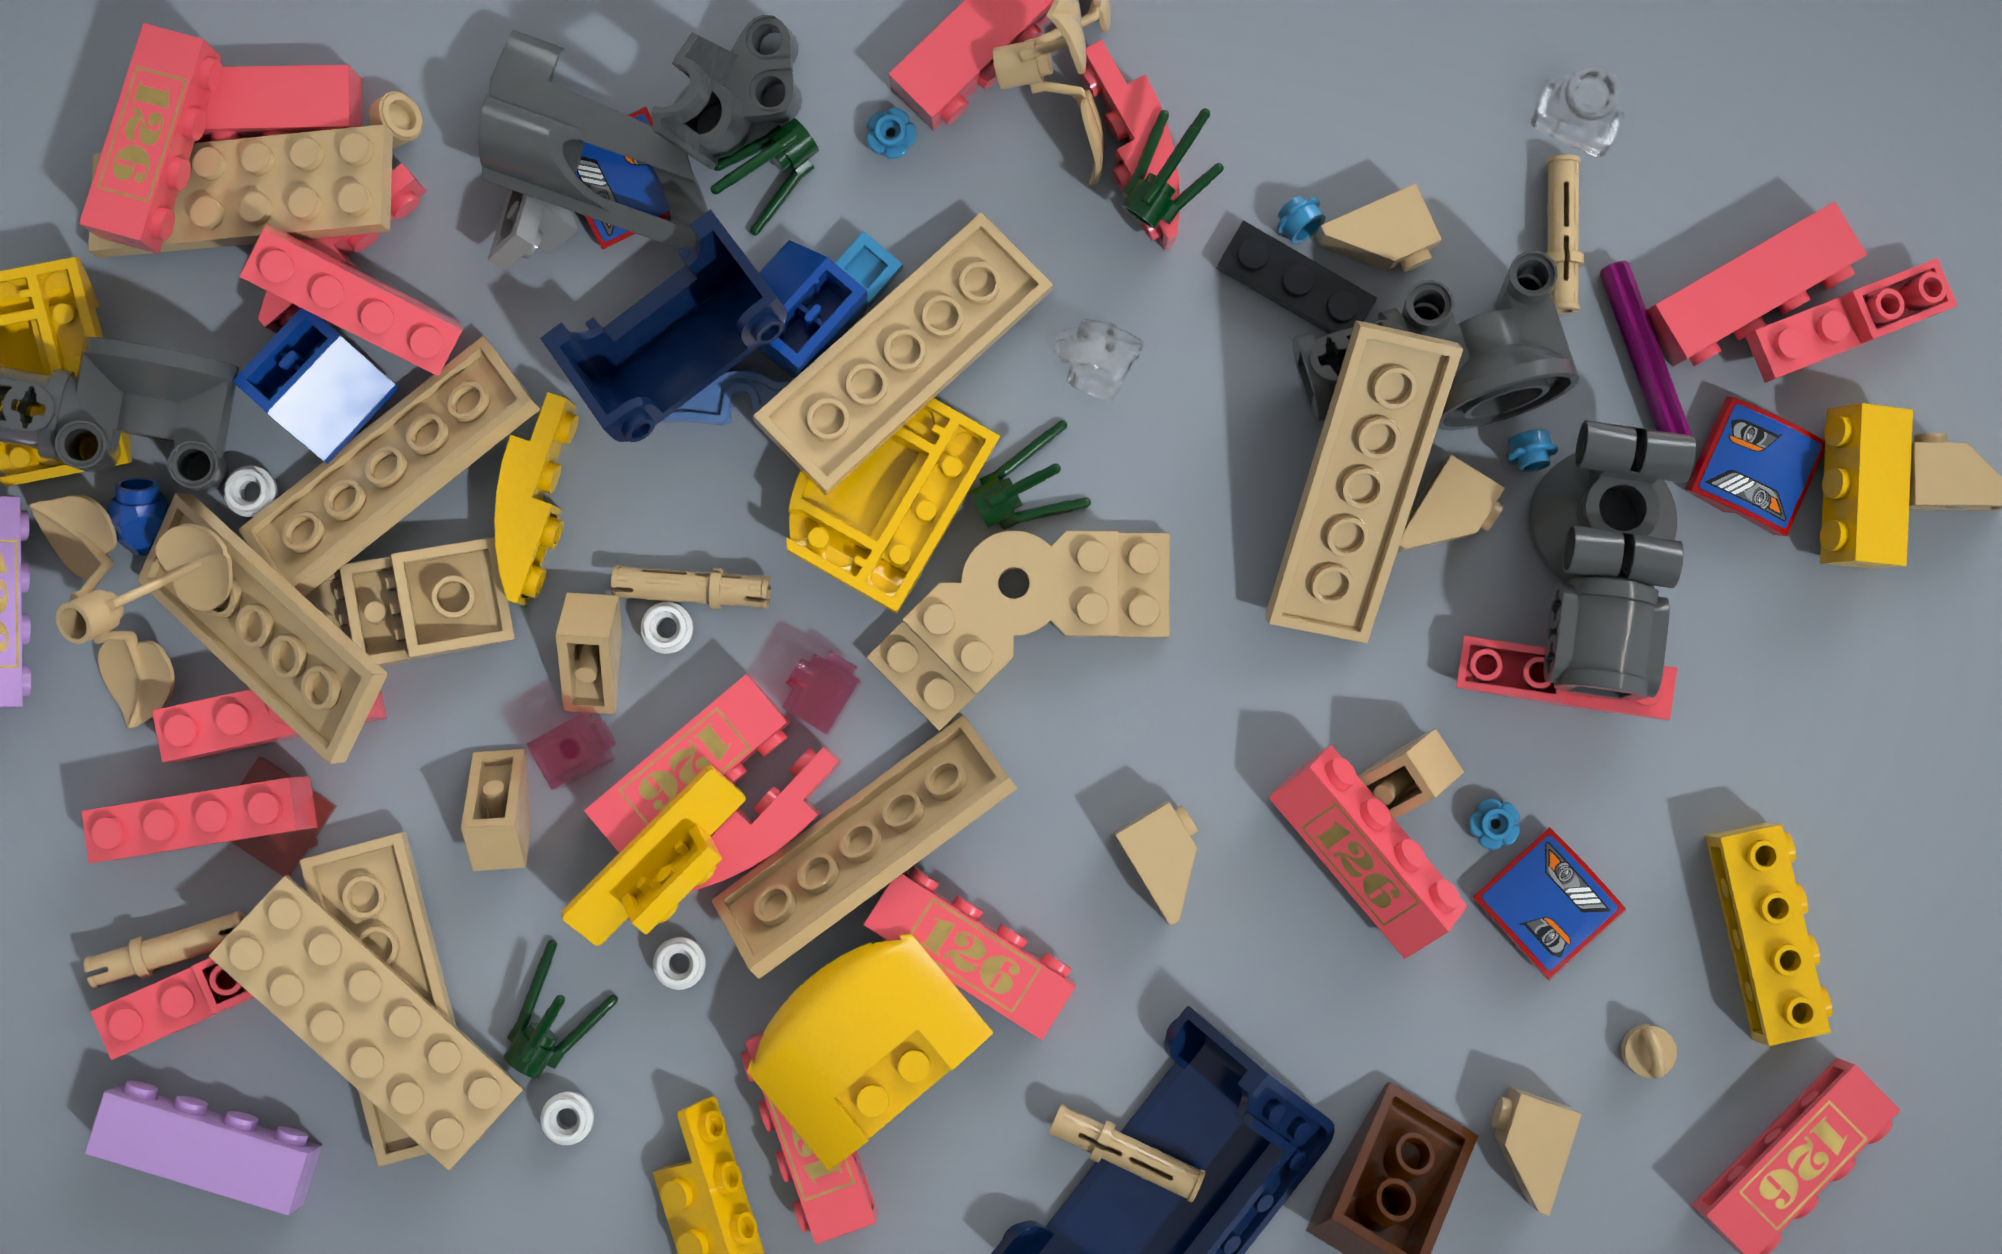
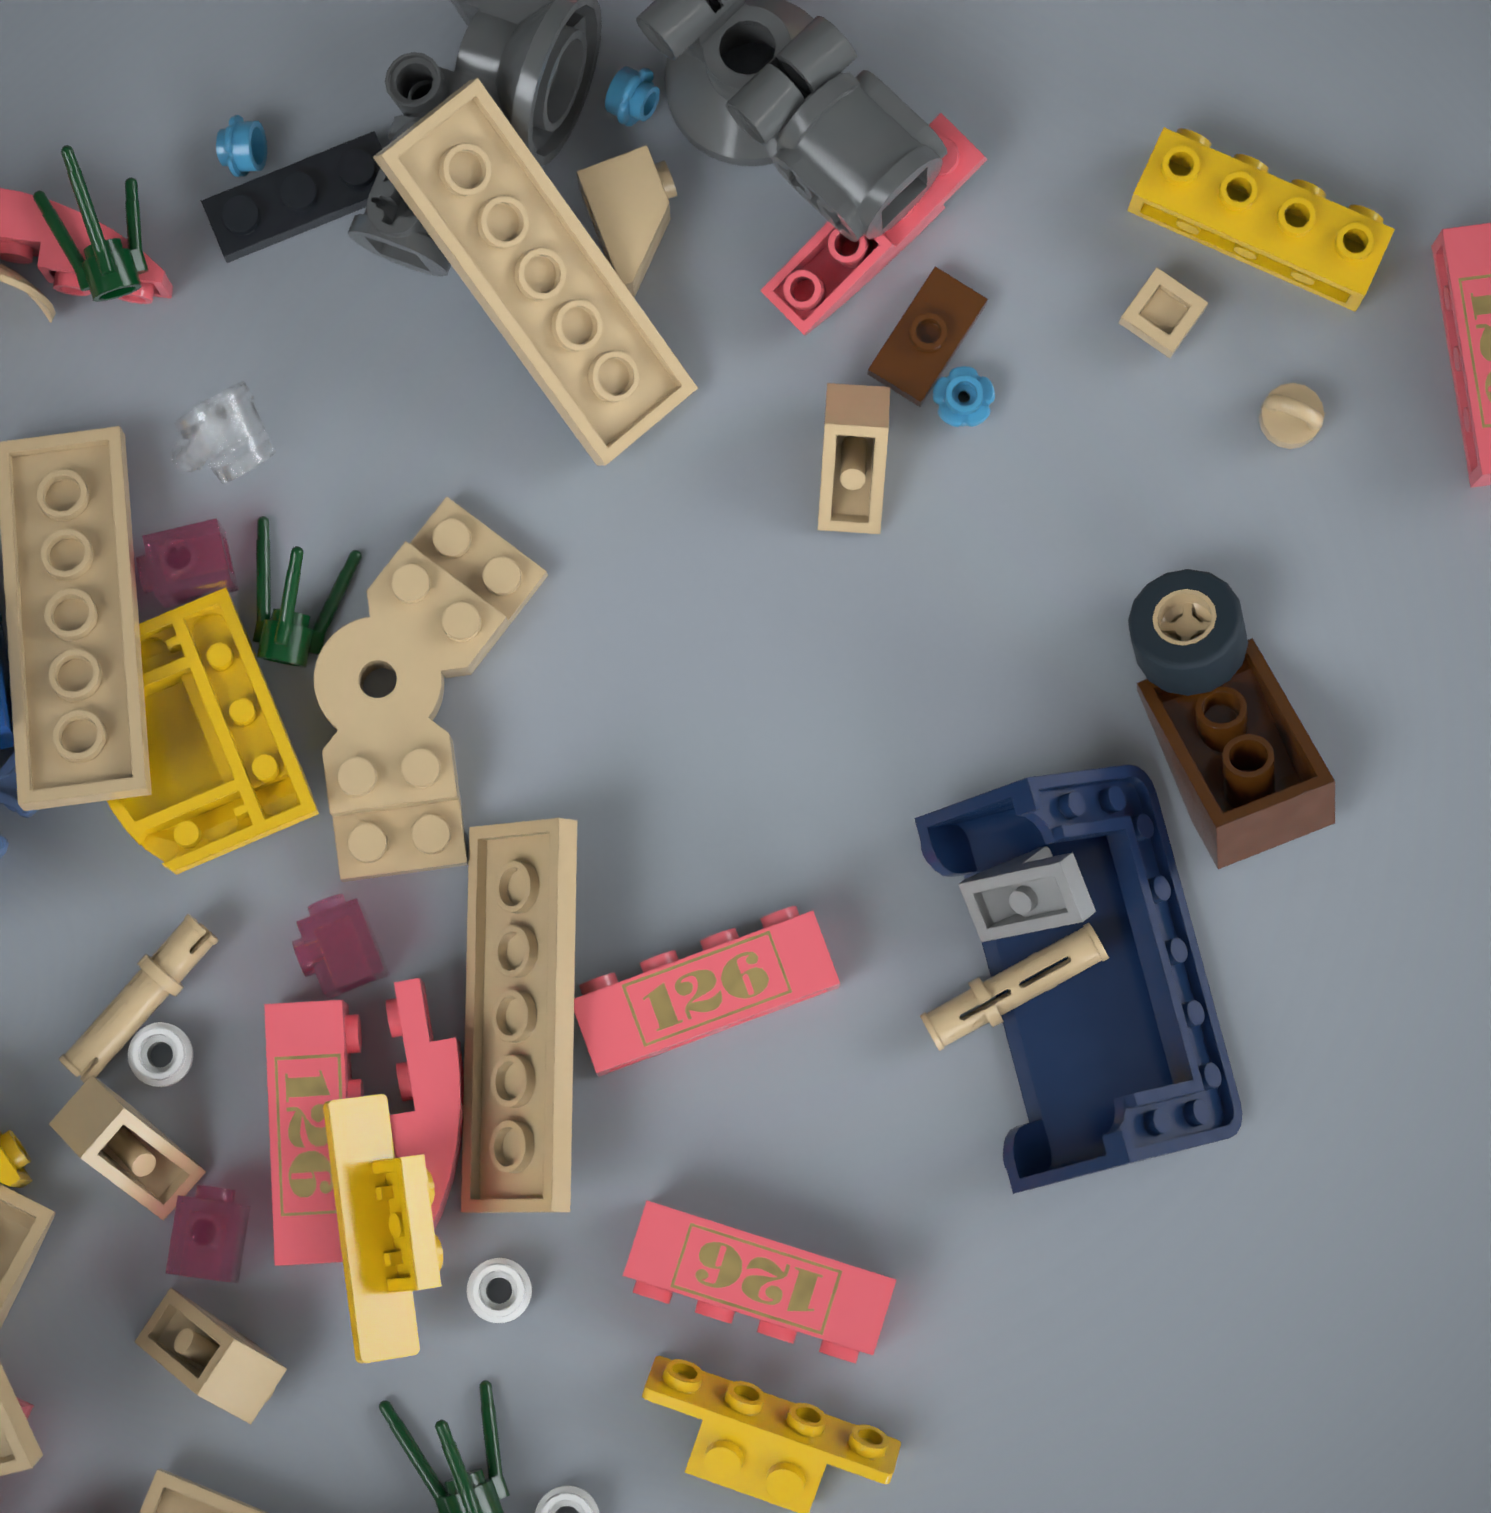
camera: 50 degrees left, 5 degrees down
(863, 1044) = (711, 1159): yellow slope -> none
(996, 398) = (186, 563): none -> clear pink brick
(1162, 855) = (752, 737): tan slope -> none
(1193, 1120) = (1027, 895): none -> light grey slope
(1368, 852) = (896, 534): coral brick -> none
(1385, 232) = (316, 77): tan slope -> none
(1464, 1080) = (1172, 614): none -> black wheel
(1518, 768) = (927, 336): none -> reddish brown plate
(1535, 1142) = (1297, 587): tan slope -> none
(1549, 903) = (1079, 403): slope -> none
(1653, 914) = (1163, 312): none -> tan plate

